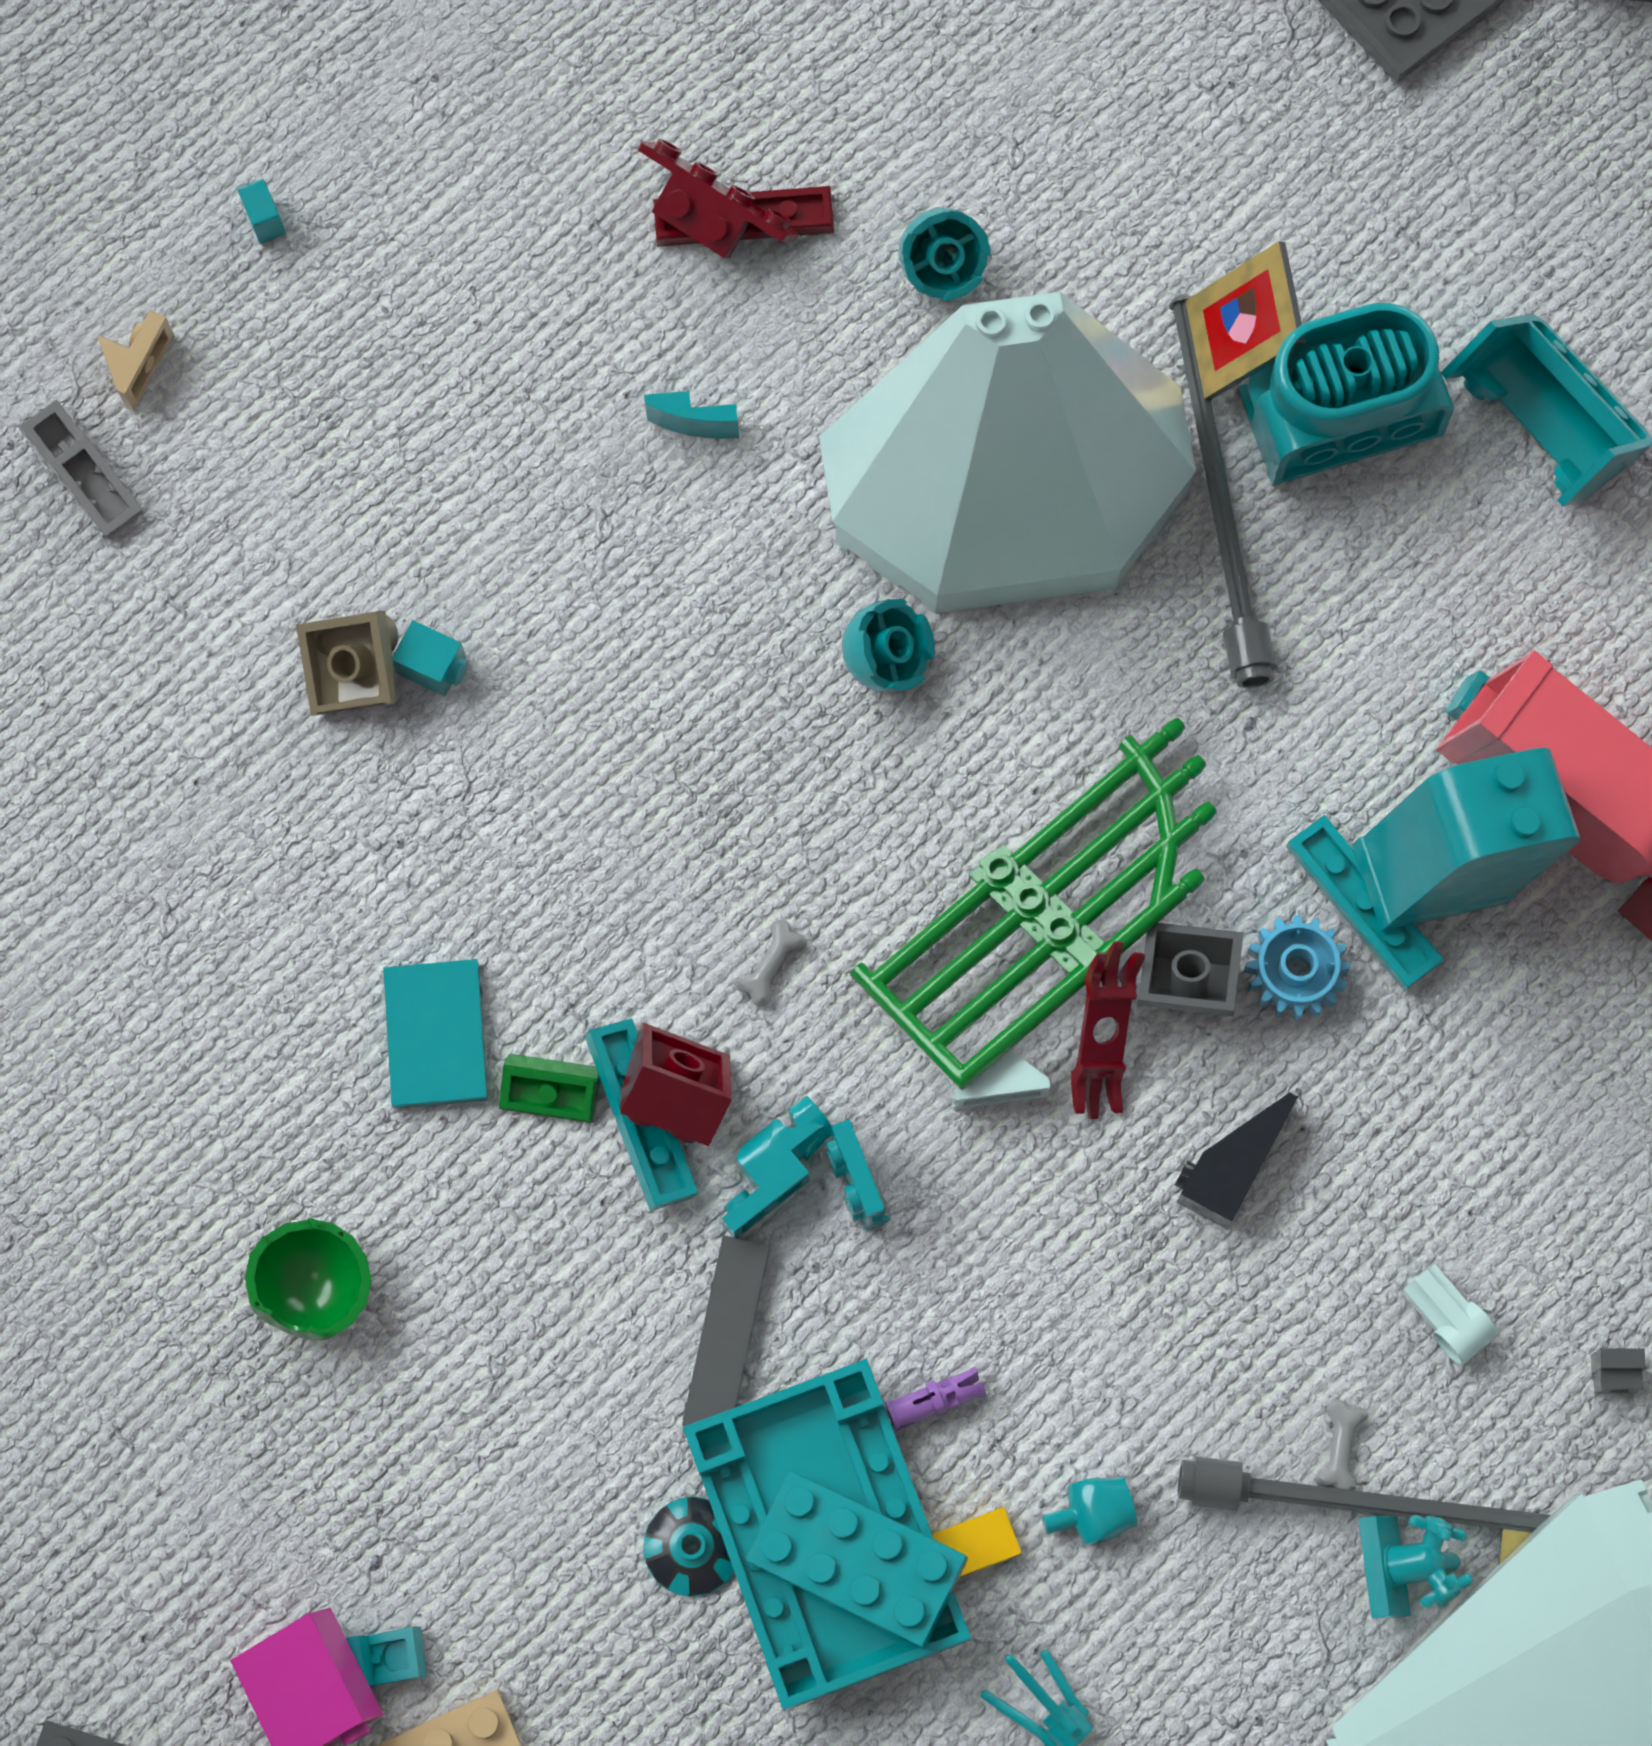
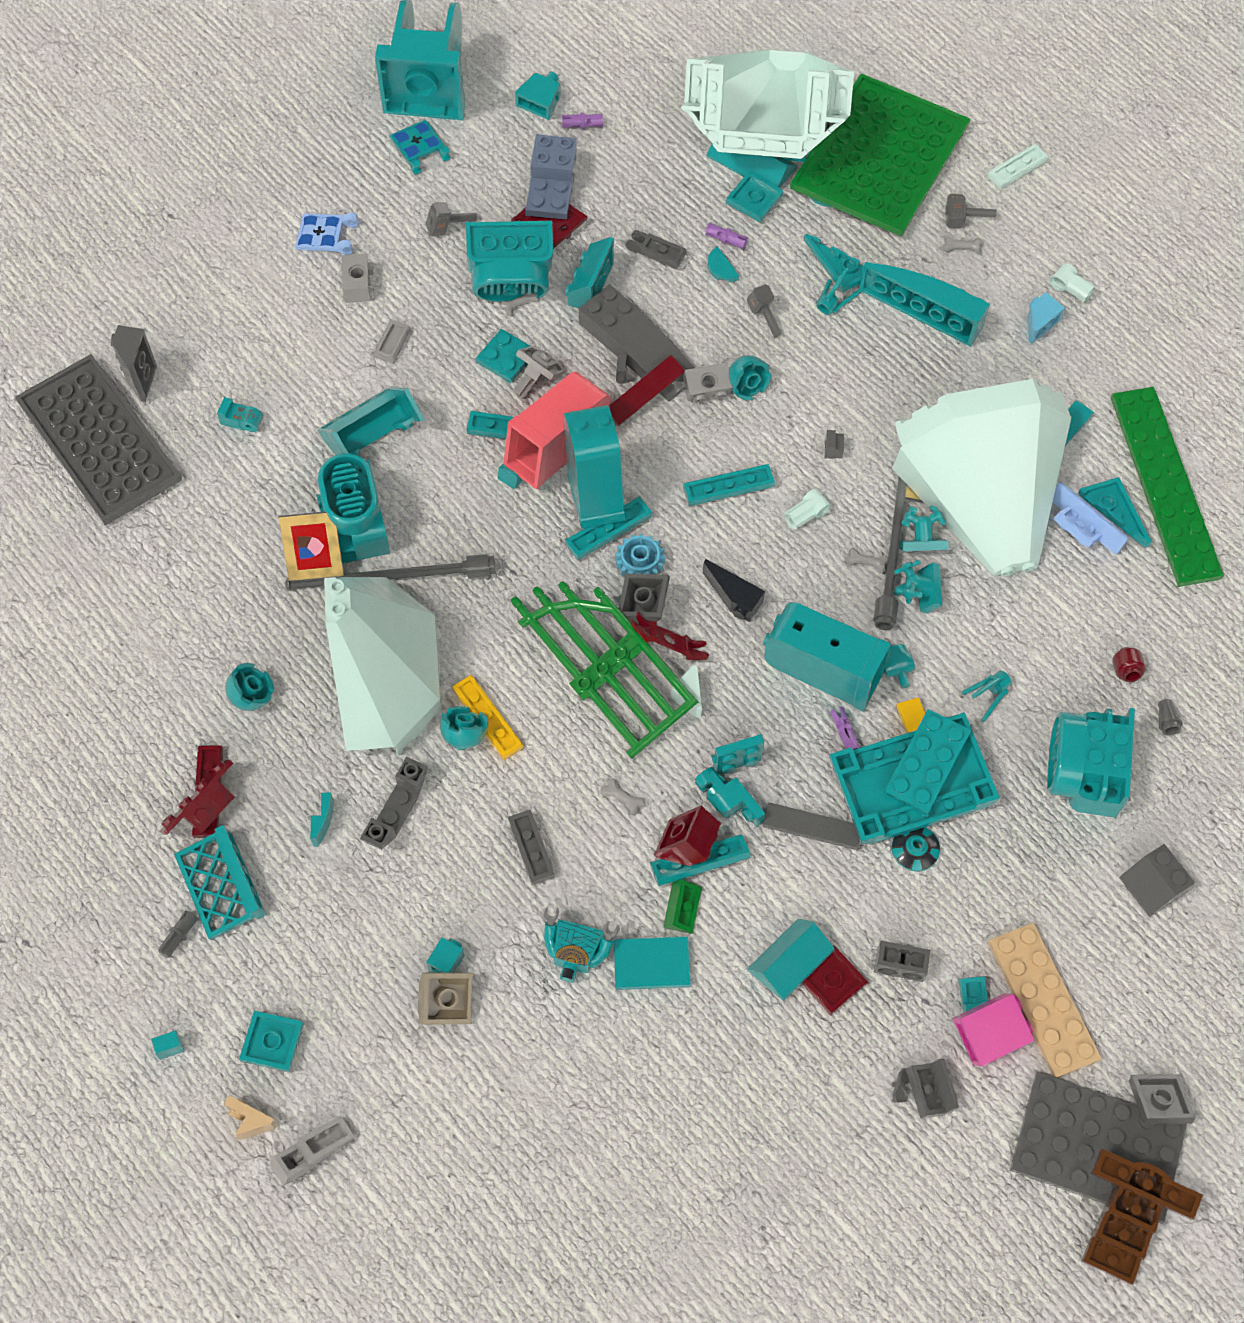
camera: 90 degrees left, 10 degrees down
(193, 1566) = (932, 1089): none -> dark grey bracket
(219, 1515) = (899, 1093): none -> dark grey piece
(272, 380) = (271, 1041): none -> teal plate
(308, 1279) = (785, 1022): green cylinder -> none
(411, 1378) = (834, 982): none -> dark red tile
(439, 1507) = (902, 961): none -> dark grey brick
(446, 1294) = (792, 958): none -> teal slope
(459, 886) = (576, 945): none -> teal torso
(465, 200) = (177, 933): none -> dark grey axle
(580, 283) = (240, 878): none -> teal fence
(655, 795) = (531, 847): none -> dark grey plate
(716, 545) = (398, 806): none -> dark grey slope
(909, 711) = (498, 730): none -> yellow tile
(1084, 1347) = (826, 654): none -> teal piece
(1279, 1571) = (924, 585): none -> teal piece
(1493, 1146) = (728, 485): none -> teal plate
(1551, 163) = (239, 416): none -> teal leg
(1587, 646) = (488, 424): none -> teal plate

